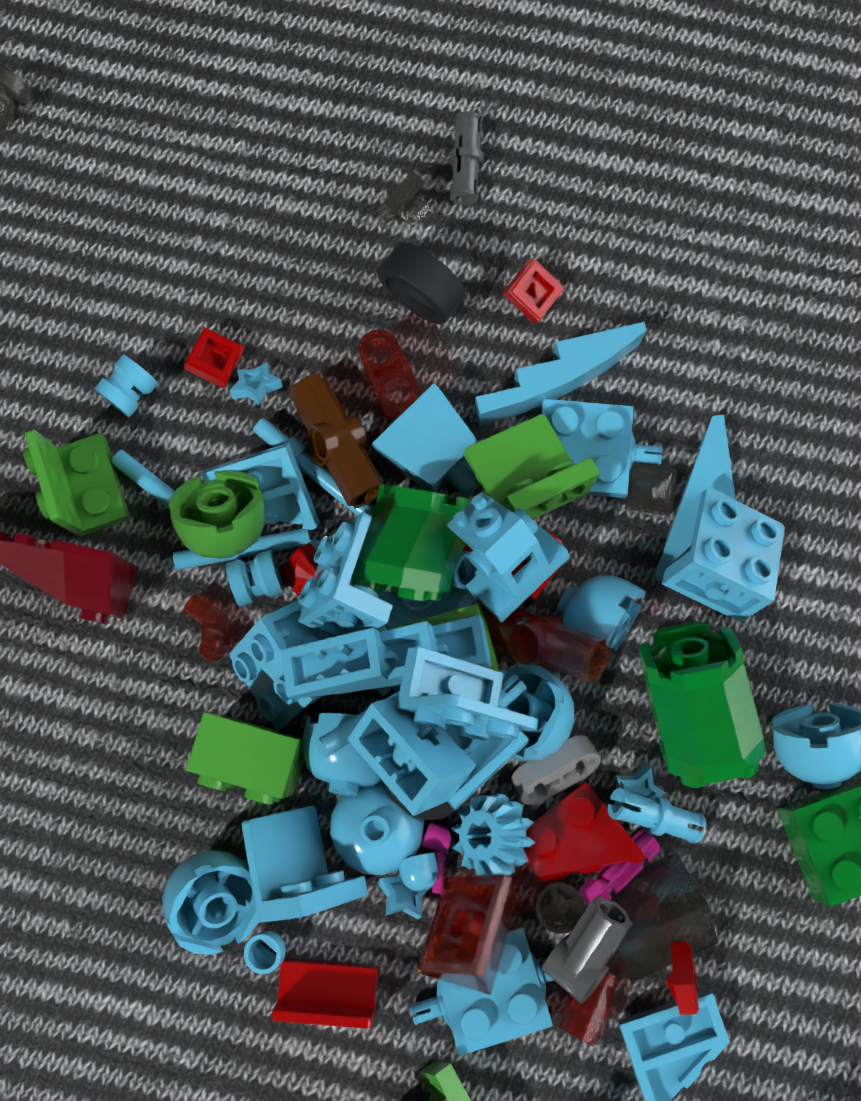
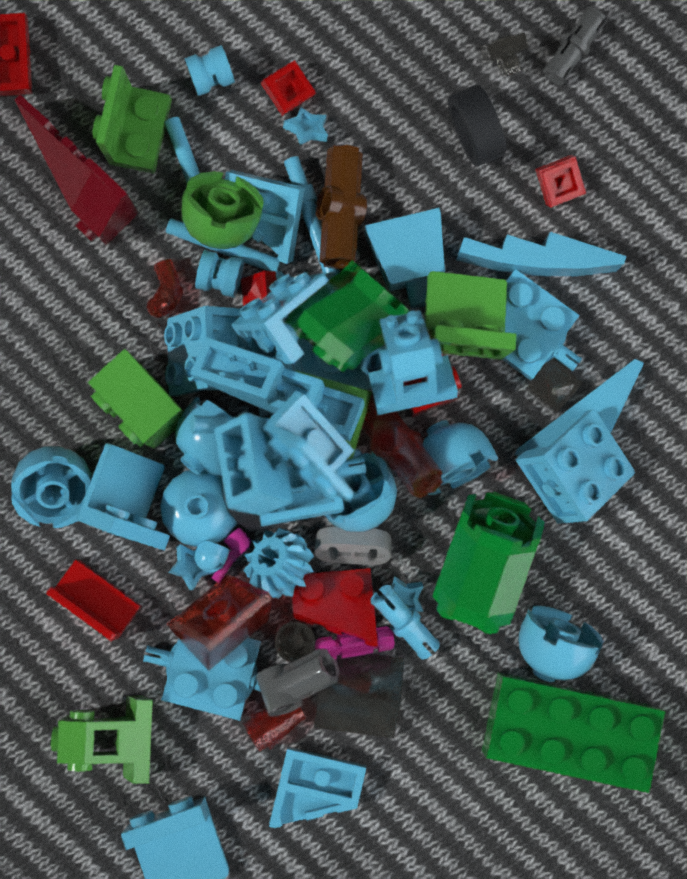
camera: 25 degrees right, 5 degrees up
(259, 957) = (62, 549): medium azure hinge -> none
(387, 375) = (411, 180): clear red beam -> none
(683, 979) = (352, 744): red tile -> none

